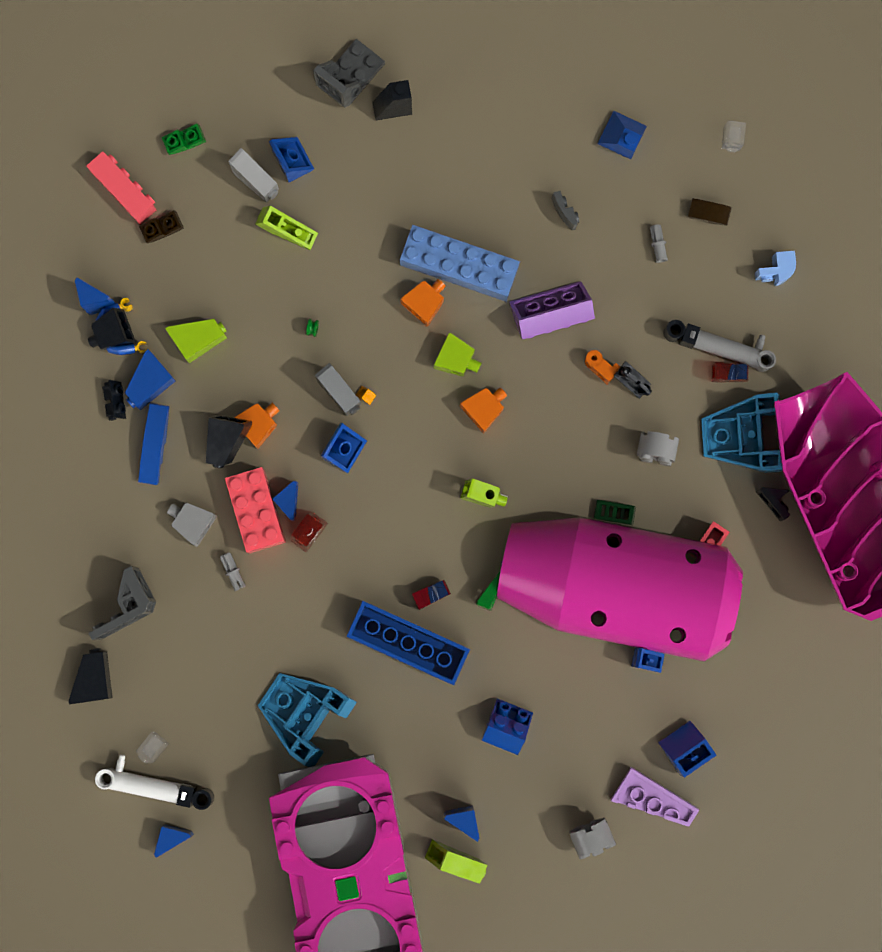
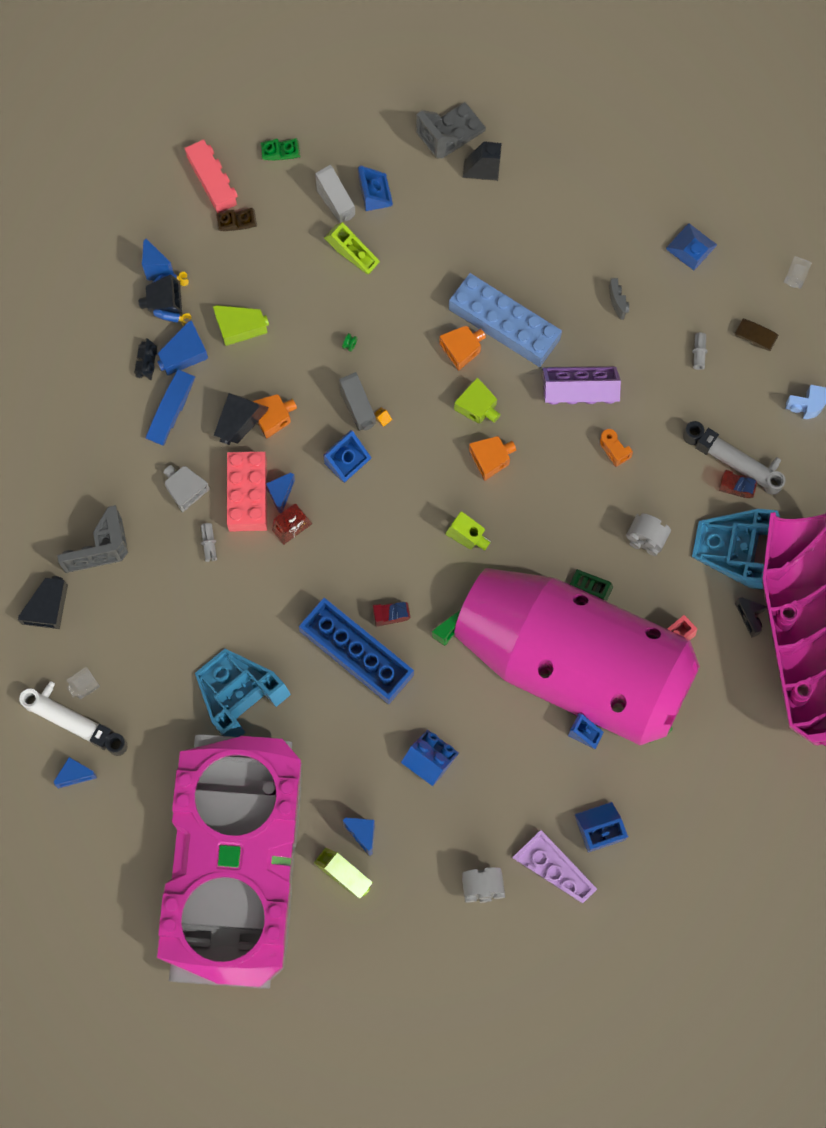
camera: 20 degrees right, 10 degrees down
(633, 380) = (641, 467): black hinge -> none

